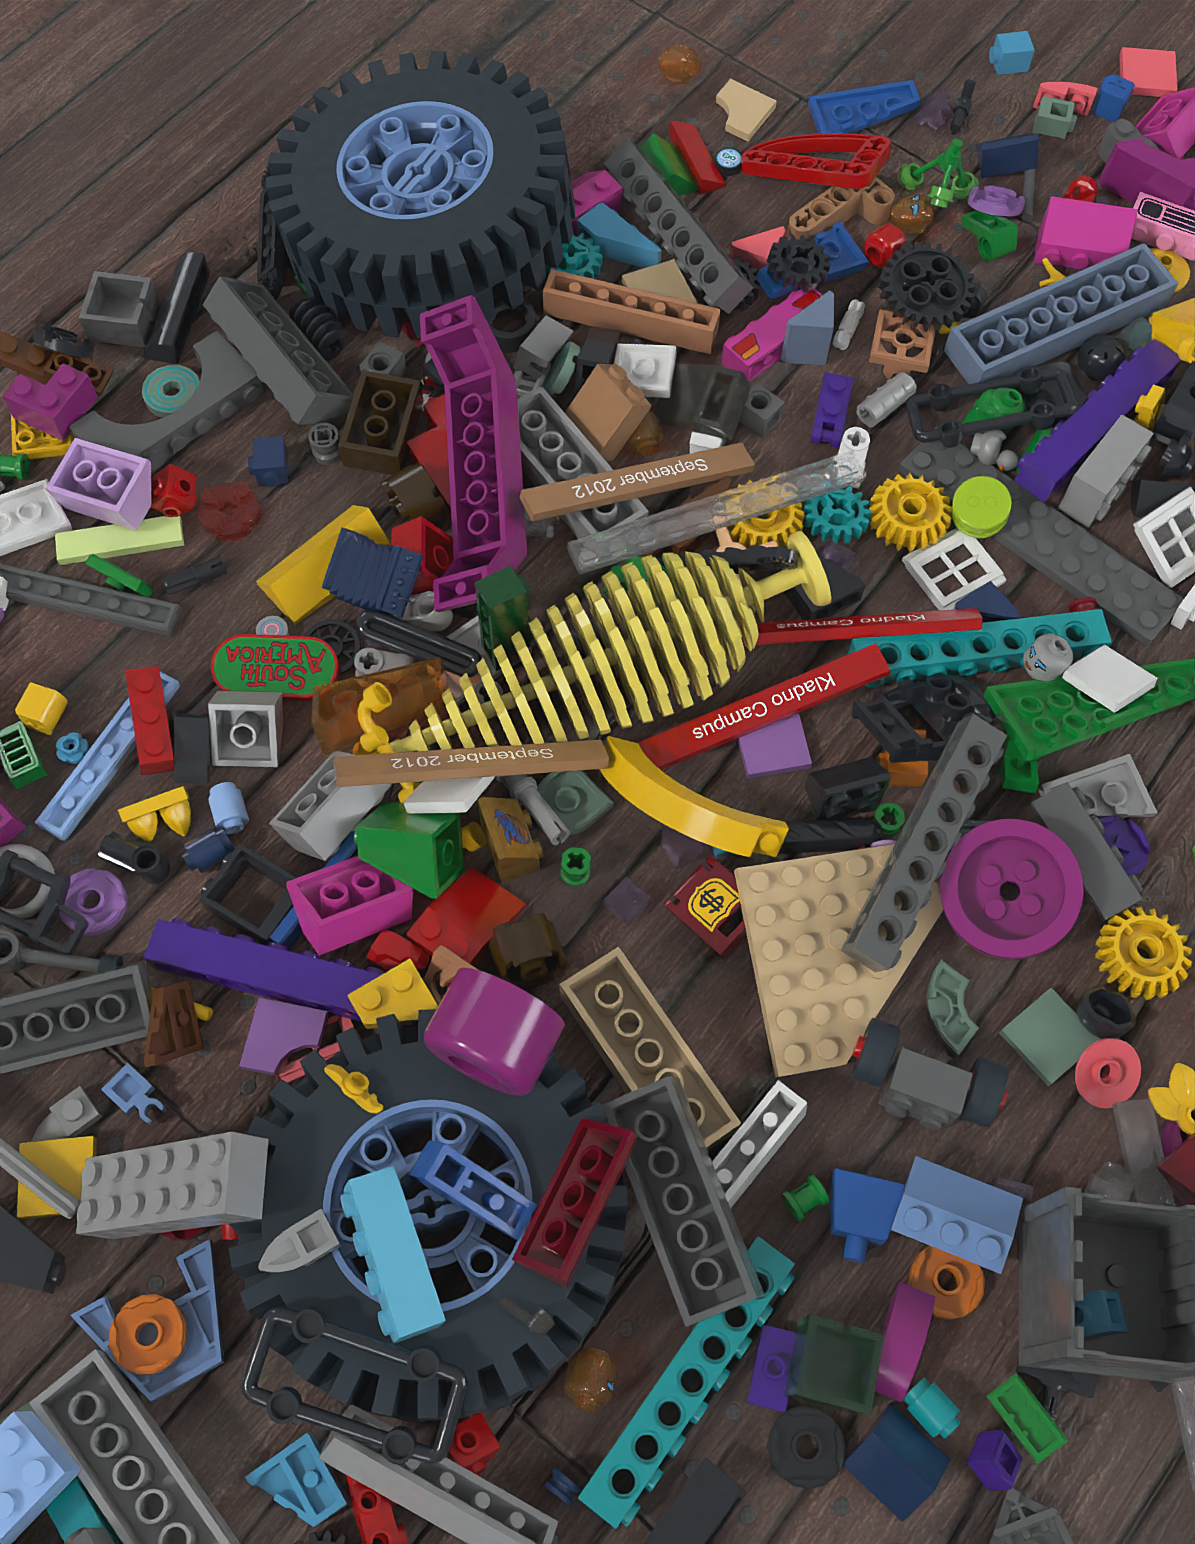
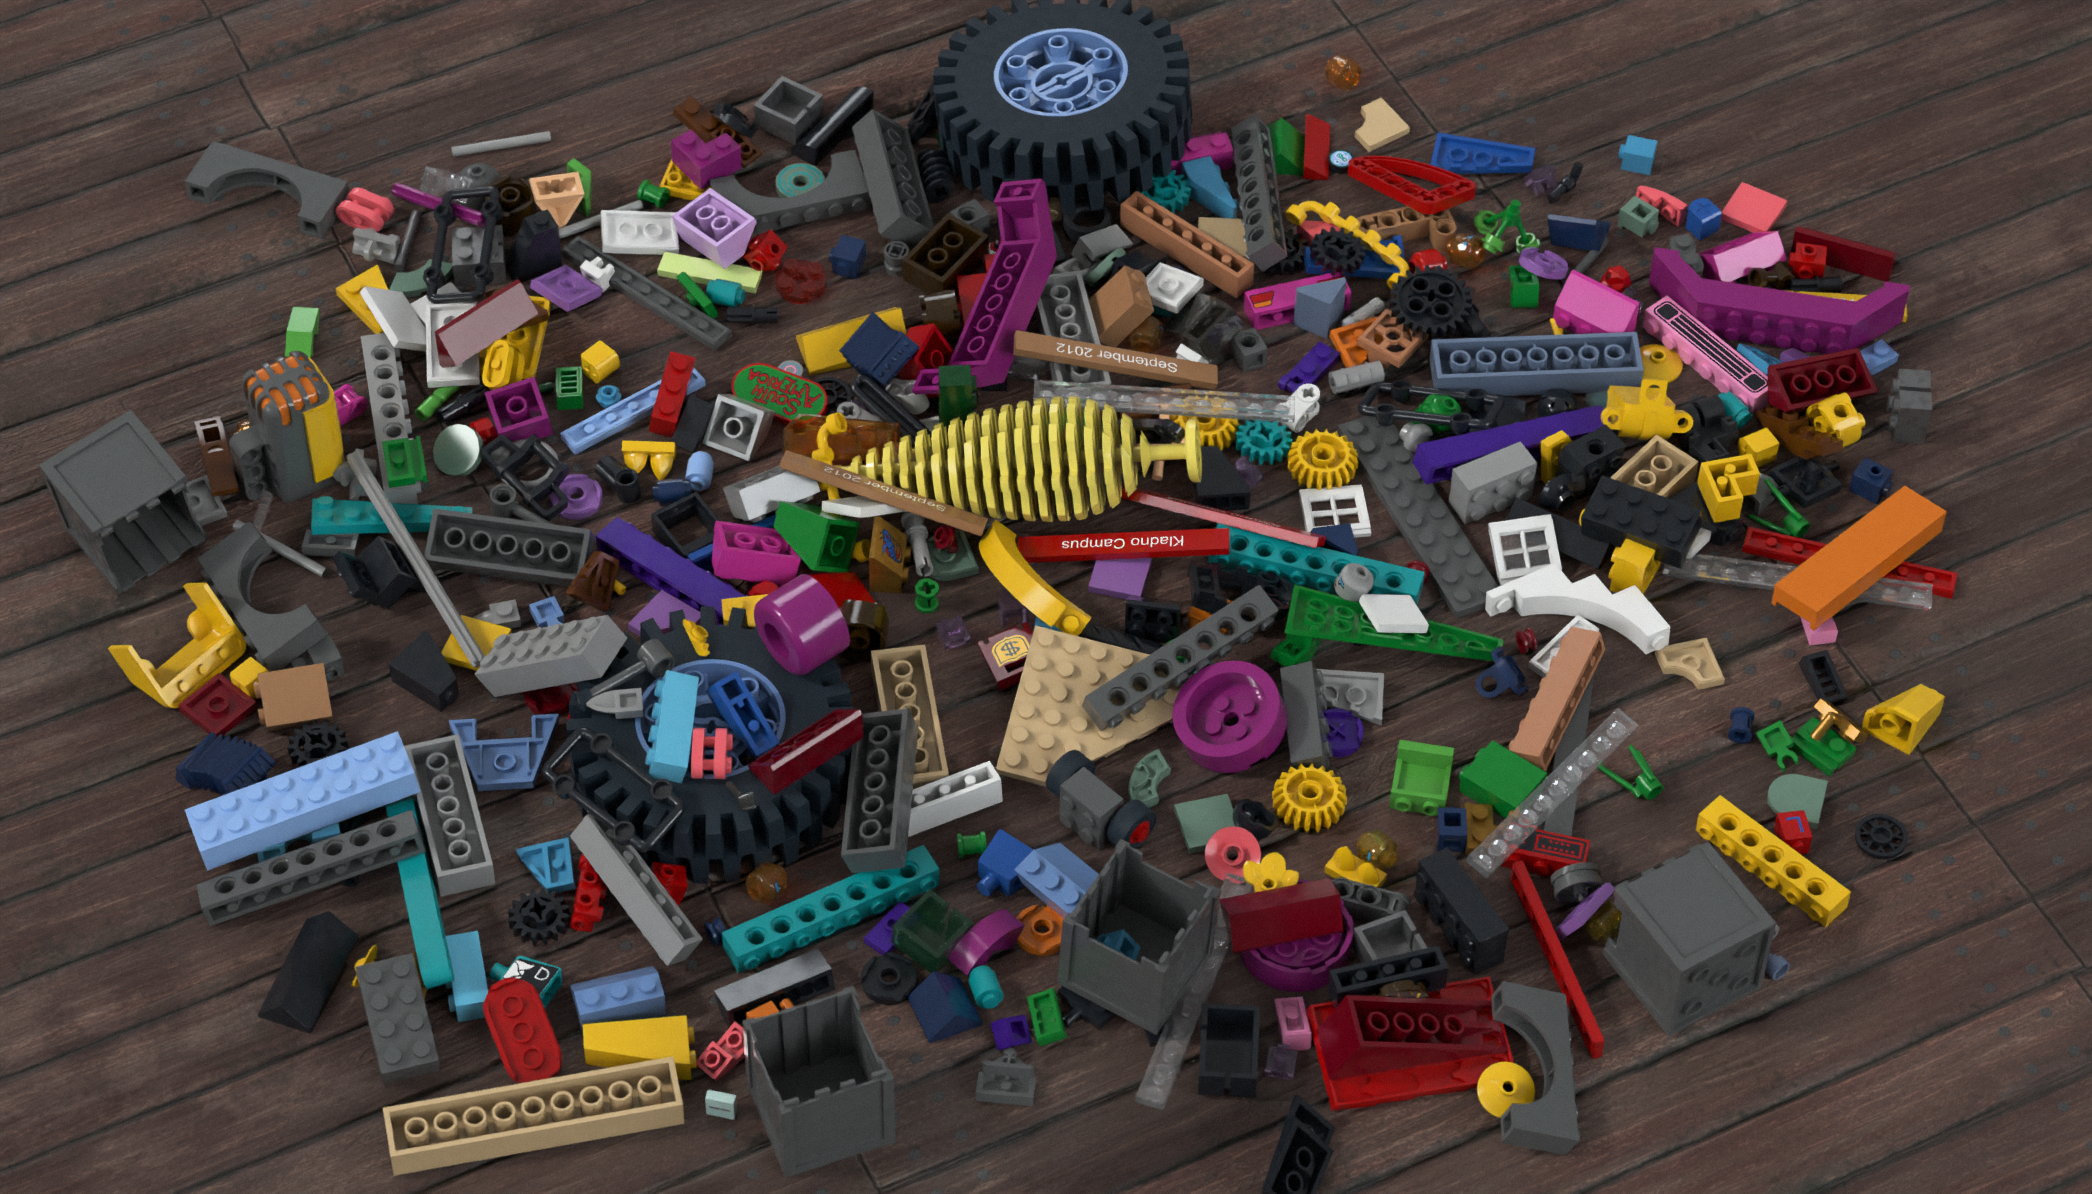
camera: 25 degrees right, 15 degrees down
(150, 560) = (725, 292): none -> teal brick
(167, 1347) = (497, 759): orange tile -> none
(318, 1153) = (653, 659): none -> dark grey piece
(481, 1282) = (721, 763): none -> coral brick
(562, 784) = (946, 539): none -> dark red plate
(764, 223) = (1371, 239): none -> yellow bar
(854, 357) = (1346, 342): none -> orange wing
(981, 506) = (1376, 472): lime head -> none

